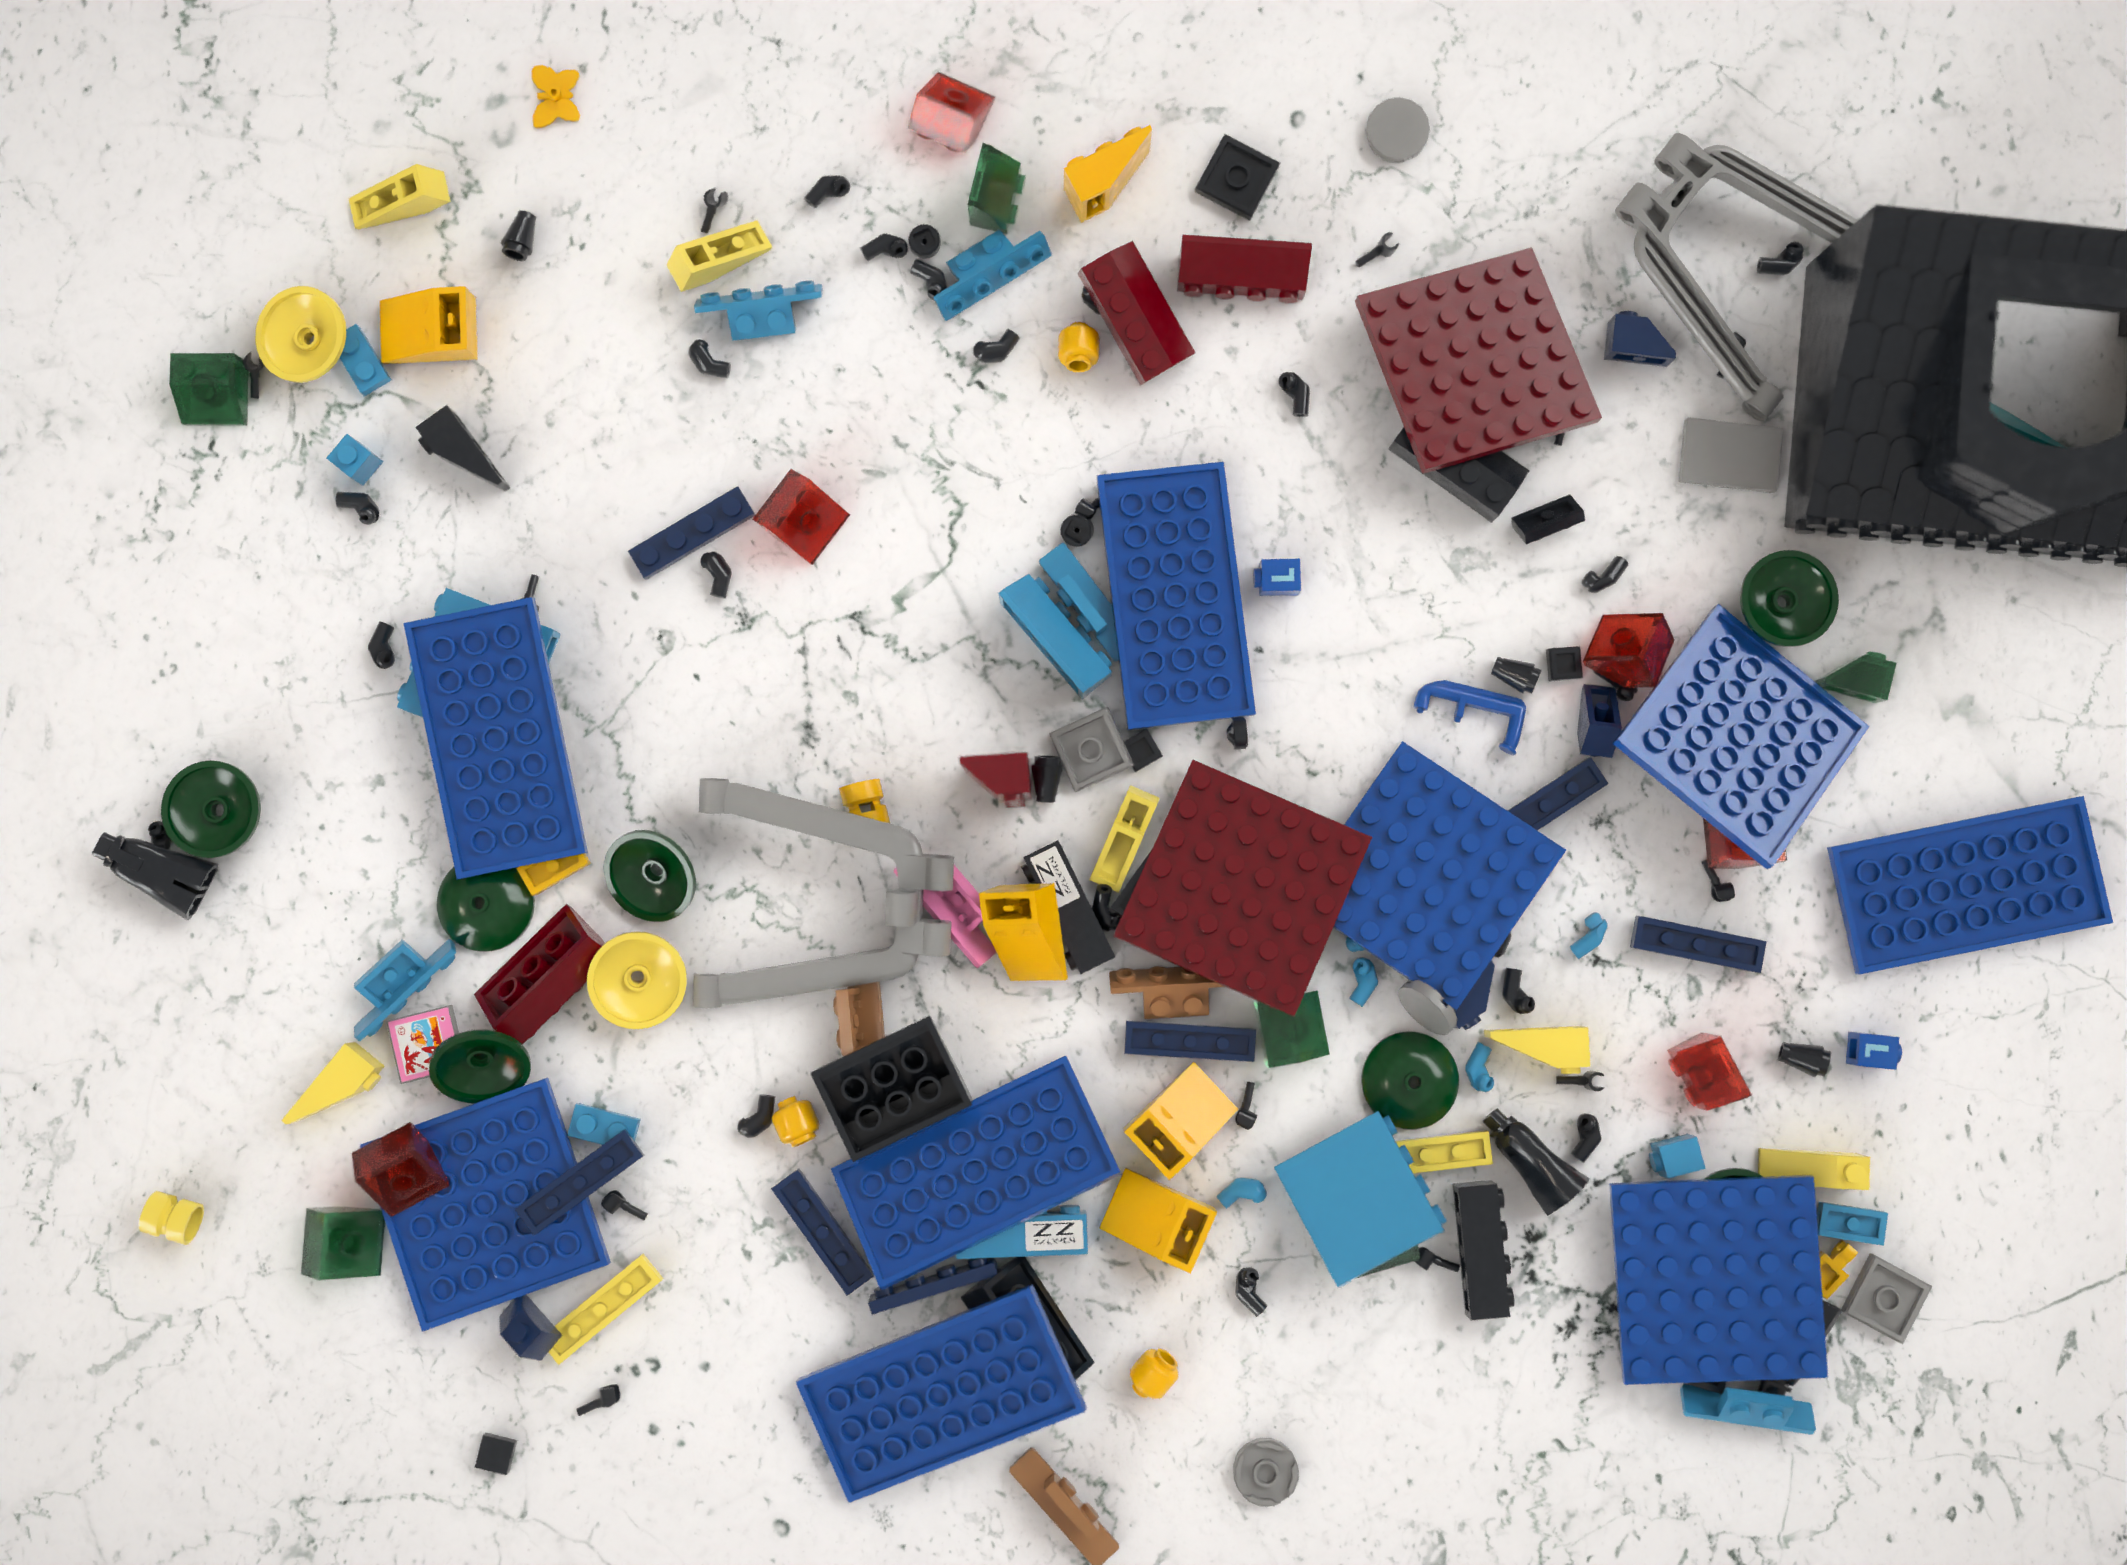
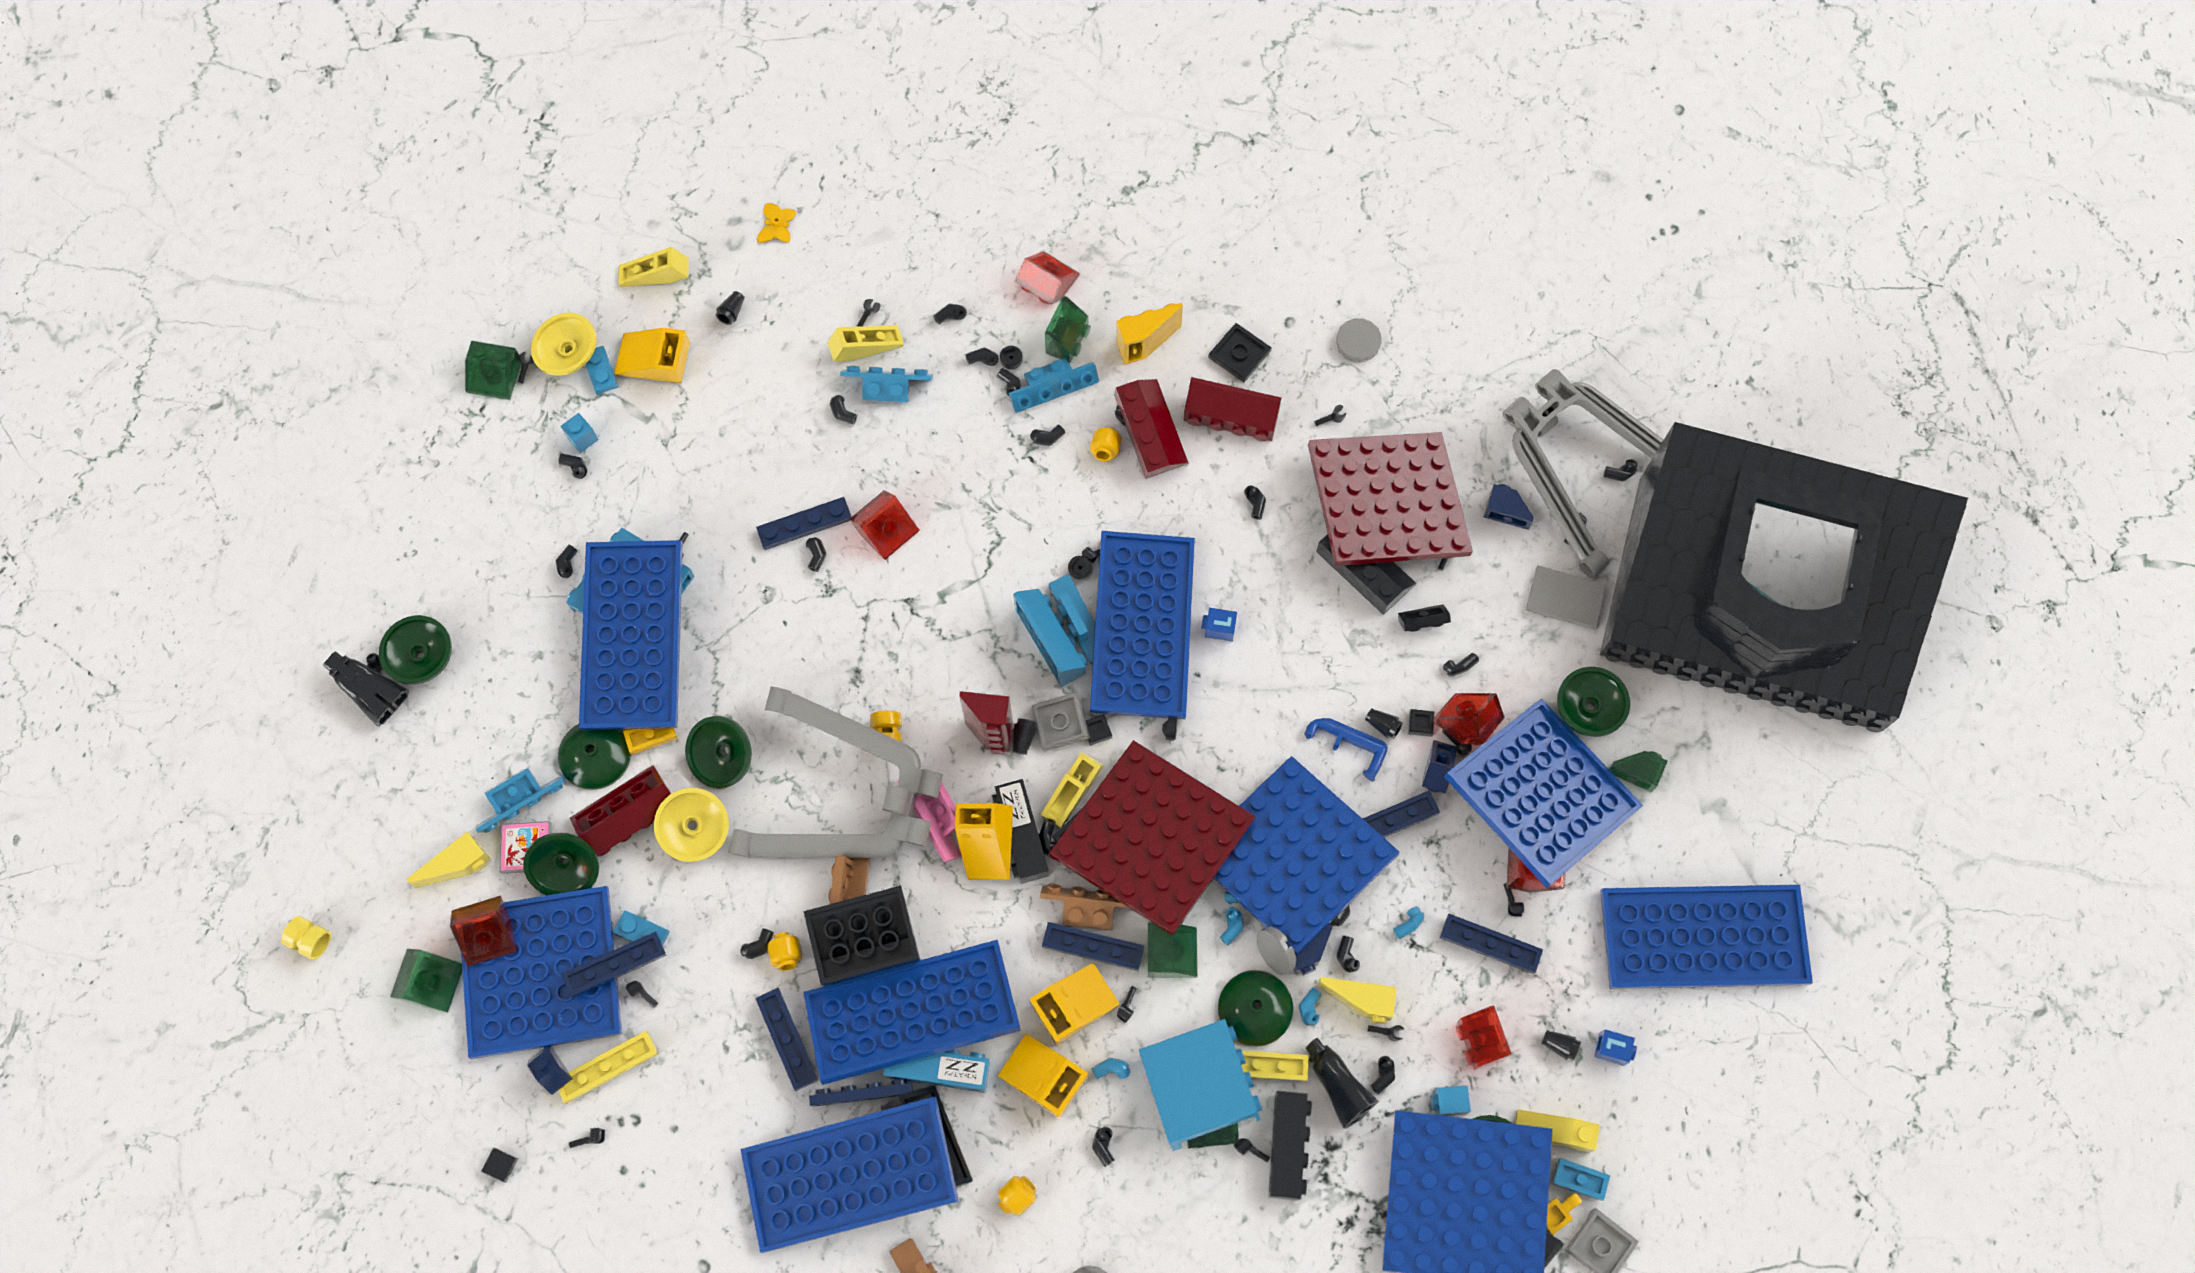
camera: 10 degrees right, 15 degrees down
(453, 442) = (651, 436): black slope -> none

